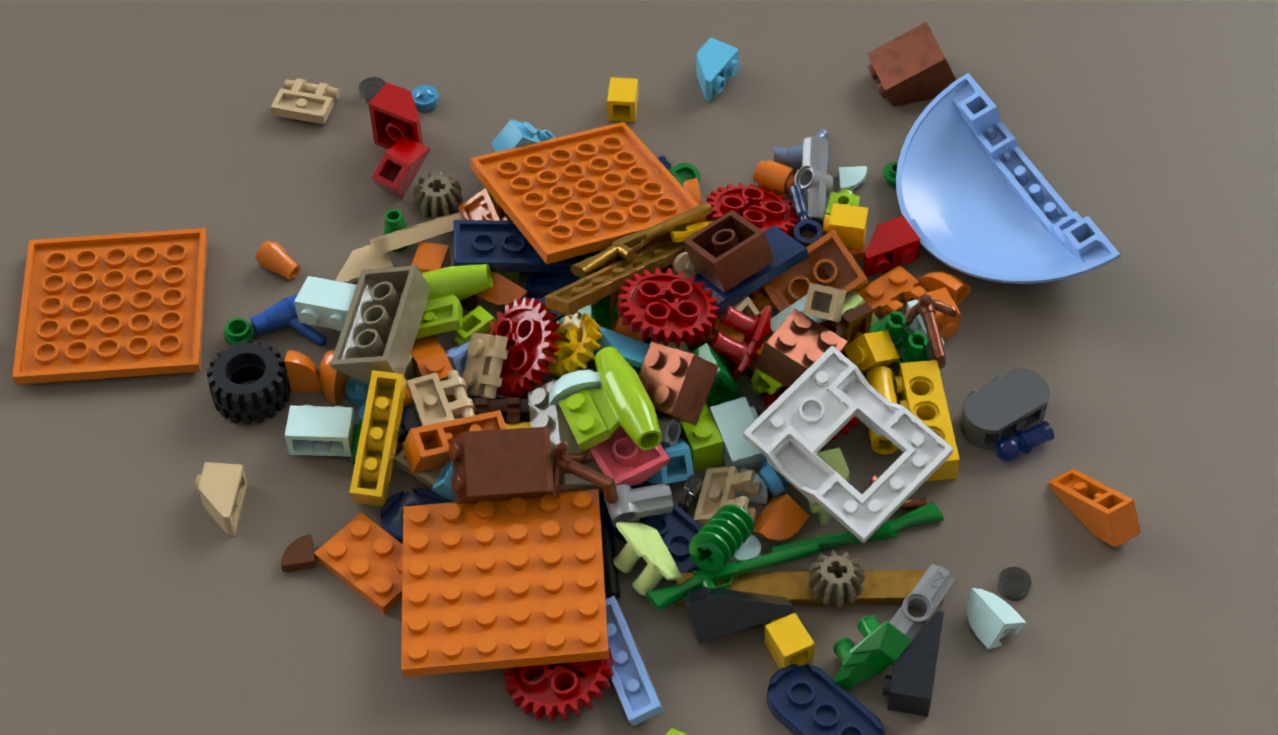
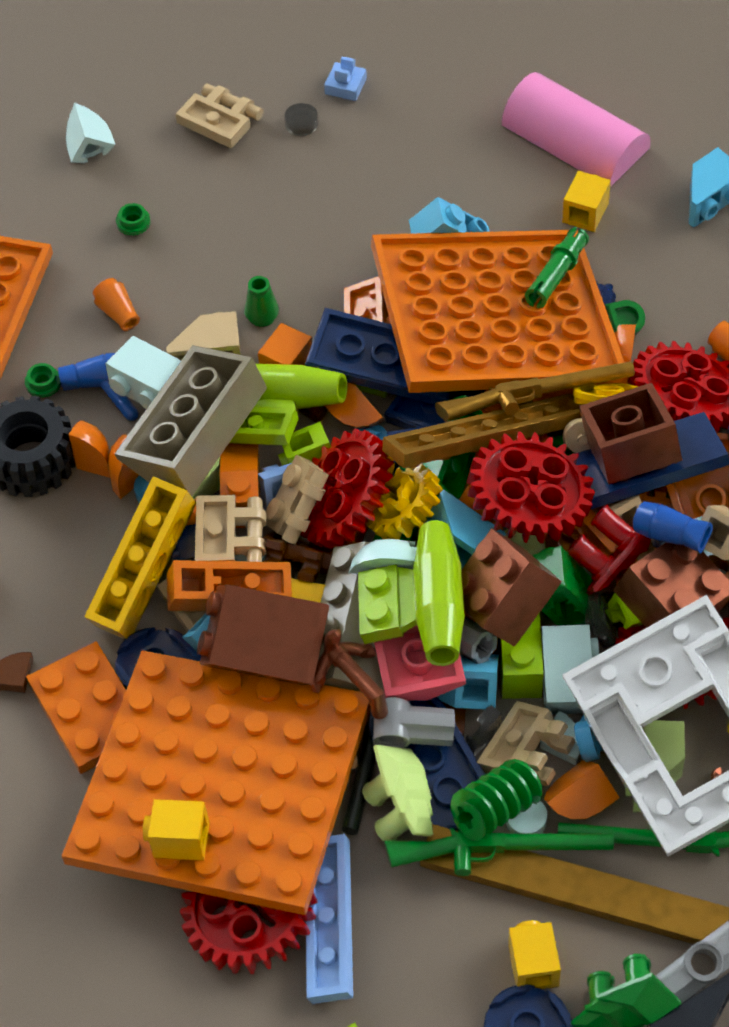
camera: 20 degrees right, 5 degrees up
(201, 140) = (87, 134): none -> light aqua brick
(265, 194) = (132, 219): none -> green plate
(320, 430) = (83, 527): light aqua brick -> none
(394, 116) = (307, 166): red slope -> none
(397, 52) = (345, 79): none -> light blue tile
(400, 166) = (293, 222): red slope -> none
(414, 234) = (277, 312): tan beam -> none
(425, 98) = (356, 143): dark azure tile -> none
(437, 195) = (325, 269): dark tan gear -> none
(490, 620) = (177, 829): none -> yellow brick
(591, 48) = (573, 128): none -> bright pink brick
(624, 143) = (562, 259): none -> green pin
(726, 611) = (470, 894): black slope -> none
(782, 305) = (670, 526): none -> blue piece
(836, 578) = (613, 877): dark tan gear -> none

